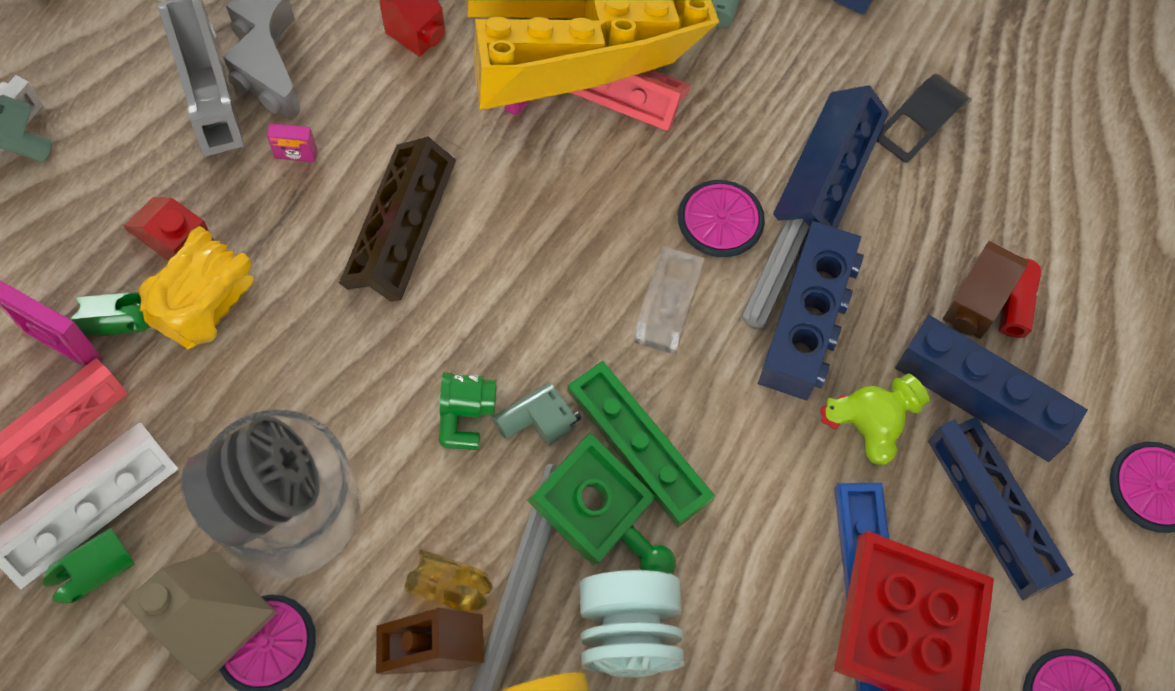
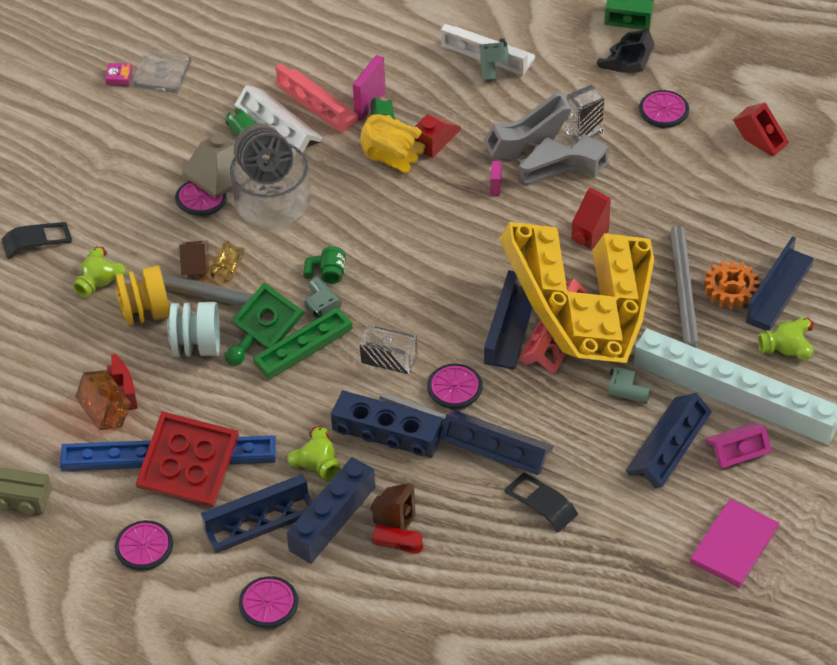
camera: 95 degrees right, 15 degrees down
(403, 219) = (447, 232): dark brown fence -> none
(595, 141) = (508, 325): none -> dark blue panel

